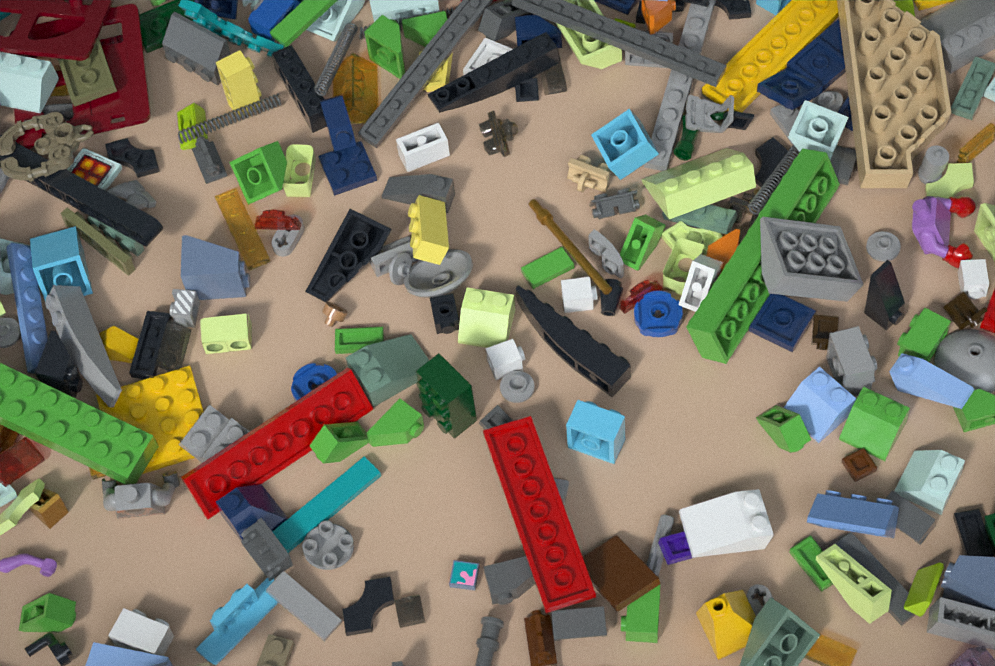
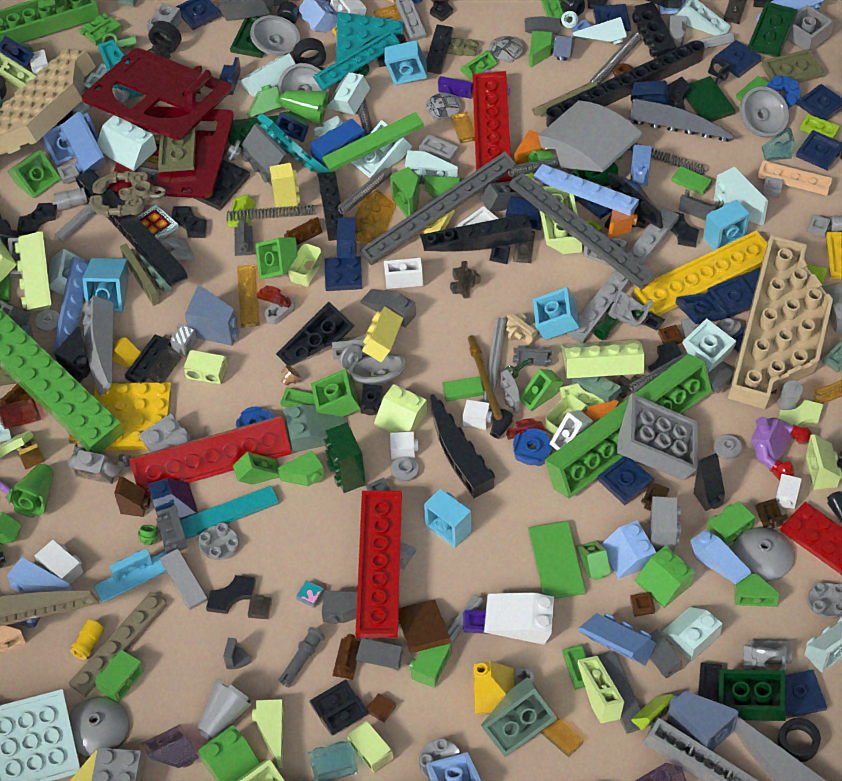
camera: 15 degrees right, 5 degrees down
(73, 555) = (32, 491): none -> bright green cone
(154, 54) = (233, 151): none -> light grey piece
(163, 94) = (227, 184): none -> black plate
(201, 525) = (131, 498): none -> reddish brown slope
(238, 564) = (147, 534): none -> bright green plate
(281, 128) = (305, 231): none -> reddish brown hinge
(400, 321) = (336, 394): none -> bright green slope
(570, 216) = (495, 355): none -> light grey axle
(603, 223) = (515, 373): none -> clear green hand
(739, 443) = (556, 560): none -> bright green tile
(764, 131) = (670, 334): none -> reddish brown tile

